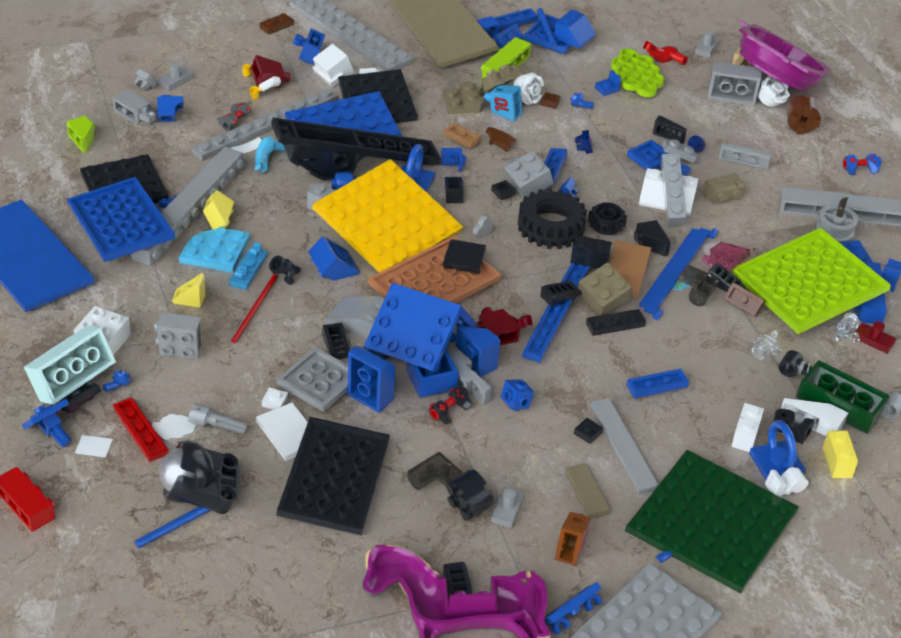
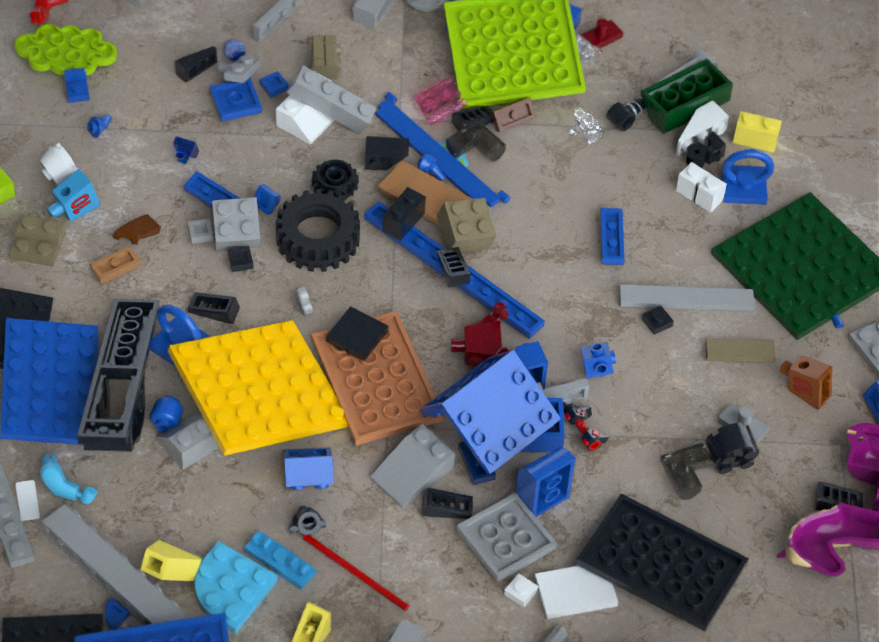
camera: 70 degrees left, 10 degrees up
(453, 157) = (160, 284): blue bracket -> none
(502, 77) = (35, 188): dark tan plate -> none
(550, 100) = (79, 153): reddish brown tile -> none
(615, 322) = (504, 242): black plate -> none
(656, 262) = (429, 164): none -> blue plate
(790, 481) = (779, 189): white leg -> none

